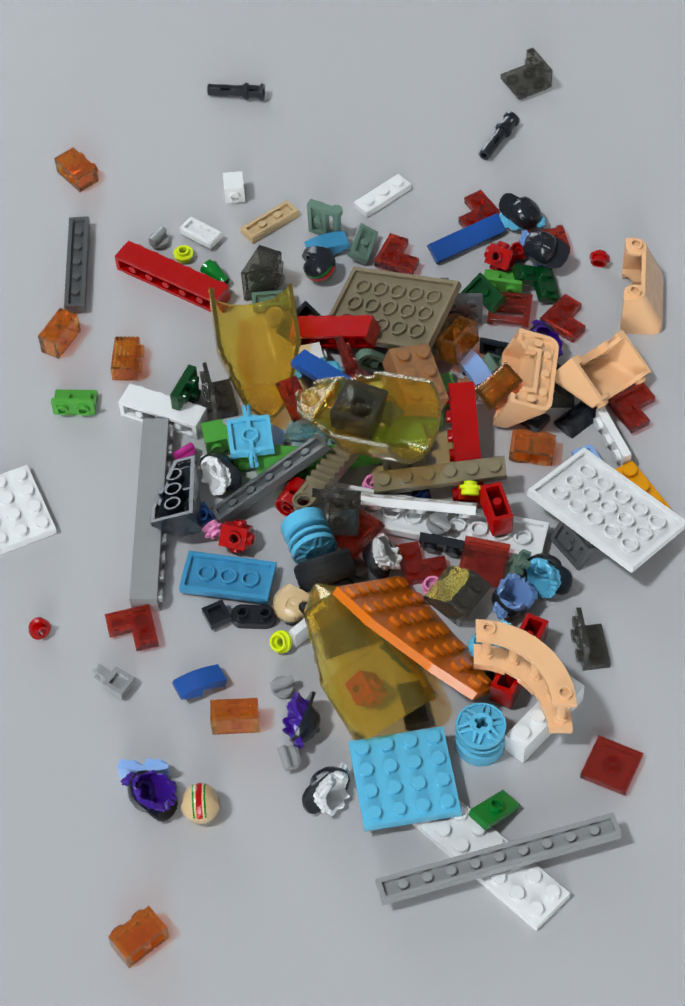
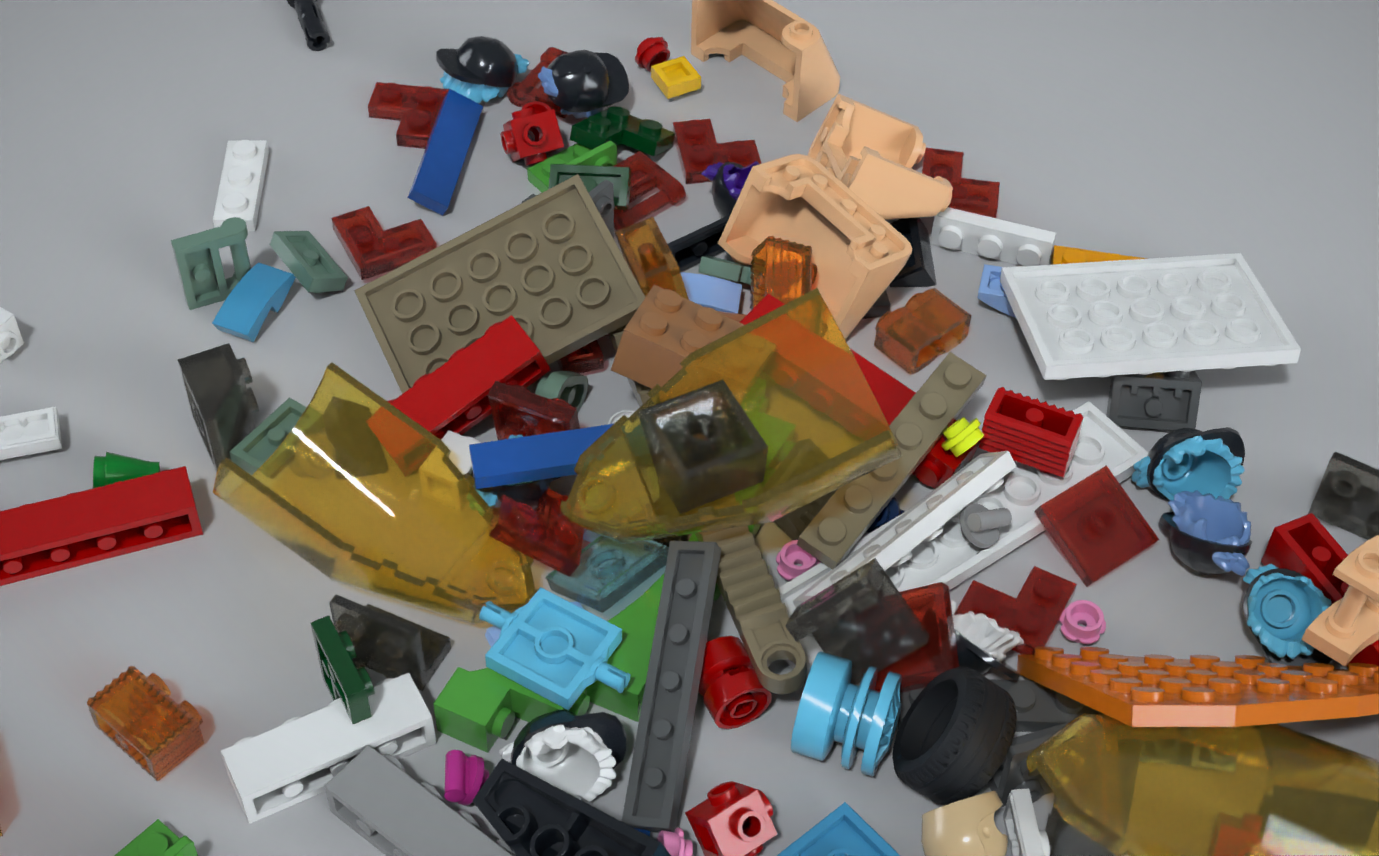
camera: 55 degrees left, 5 degrees down
(183, 254) = (23, 487): neon yellow plate -> none
(269, 221) = (109, 340): tan tile -> none
(319, 264) = (295, 331): black helmet -> none
(431, 543) = (1028, 544): black plate -> none
(457, 593) = (1143, 594): clear smoke slope -> none
(517, 563) = (1147, 487): sand green plate -> none
(594, 275) = (676, 77): none -> yellow plate

